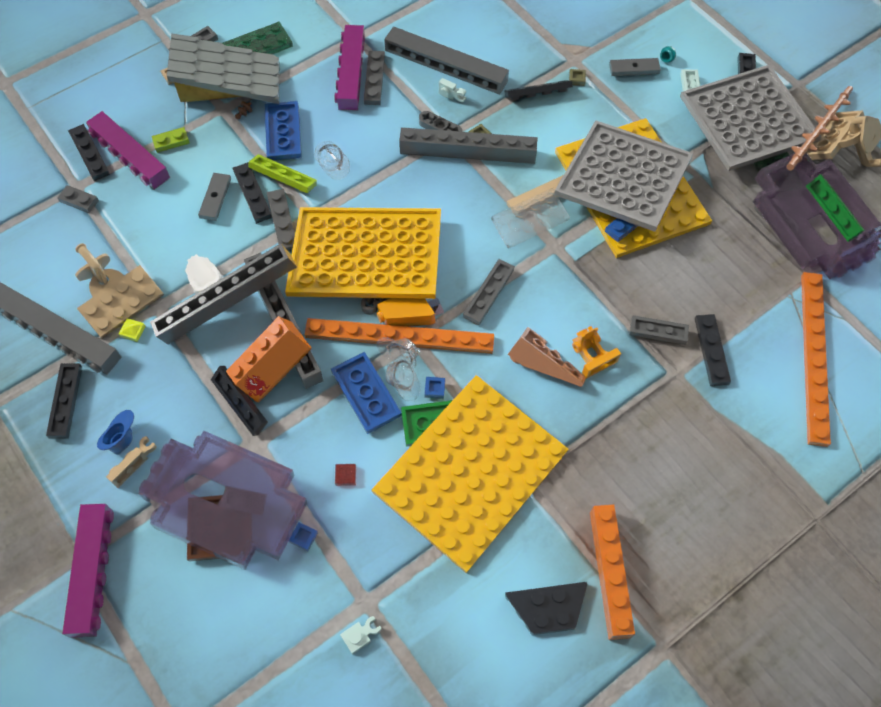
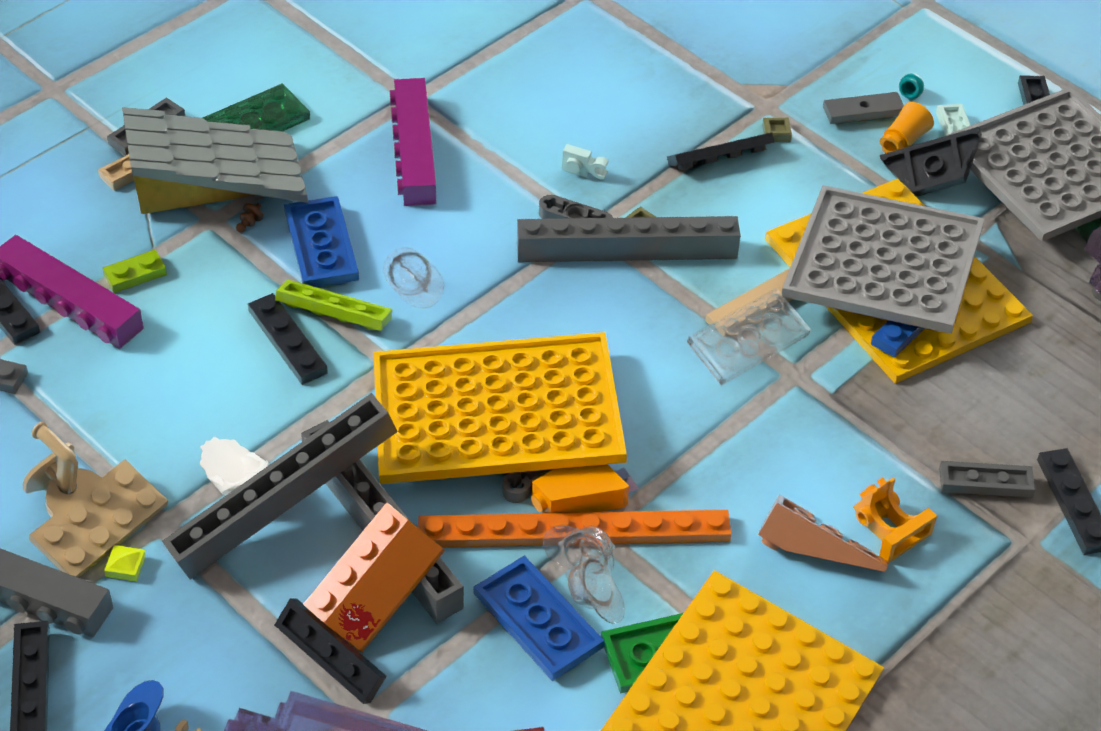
camera: 10 degrees left, 15 degrees down
(214, 196) = (227, 348): dark grey tile -> none
(281, 218) = (341, 367): dark grey plate -> none
(374, 78) = (454, 154): dark grey plate -> none
(434, 387) = (649, 598): blue plate -> none
(446, 60) = (566, 119): dark grey brick -> none
(488, 292) = (705, 449): dark grey plate -> none
(658, 84) = (907, 128): none -> light orange plant
(671, 110) = (935, 163): none -> black wing

